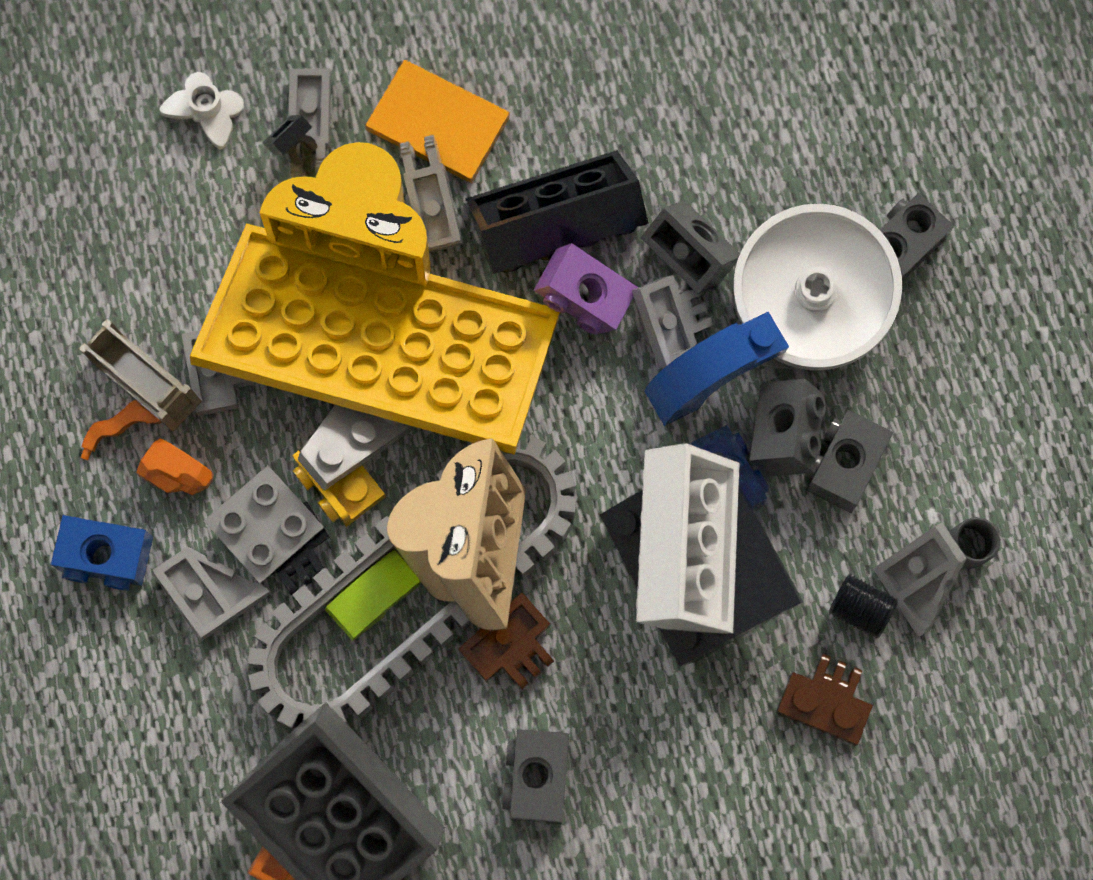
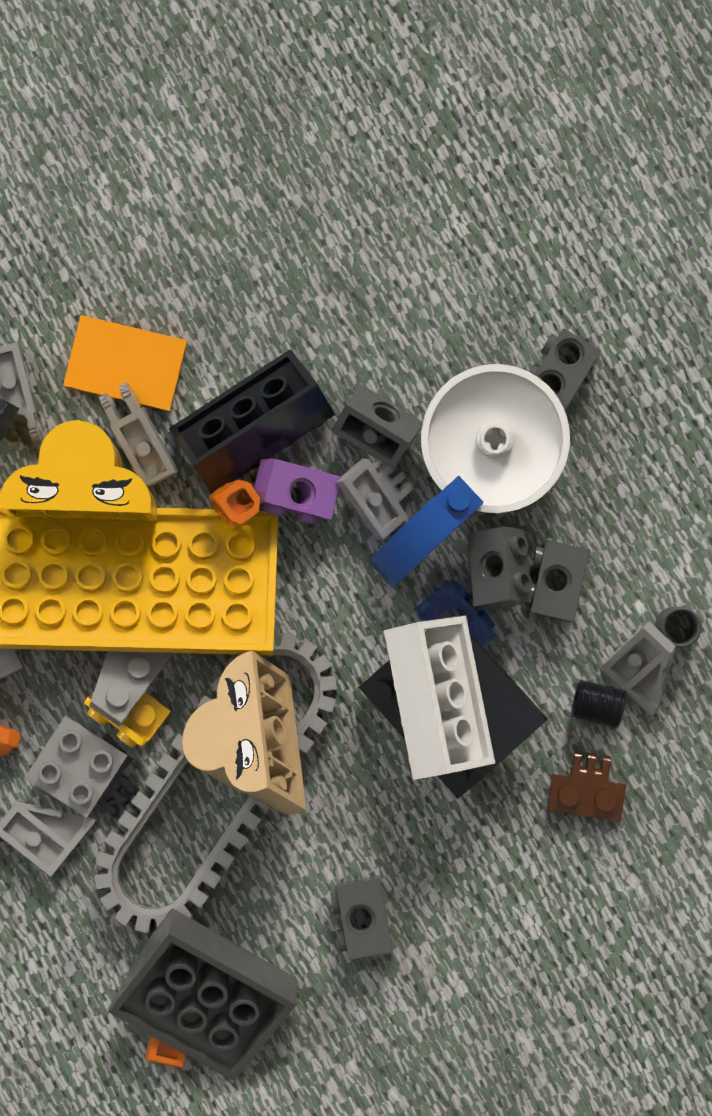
camera: 15 degrees left, 10 degrees up
(373, 595) = (183, 803): lime slope -> none
(510, 647) = (319, 815): reddish brown hinge -> none
(516, 281) = (235, 502): none -> orange rock

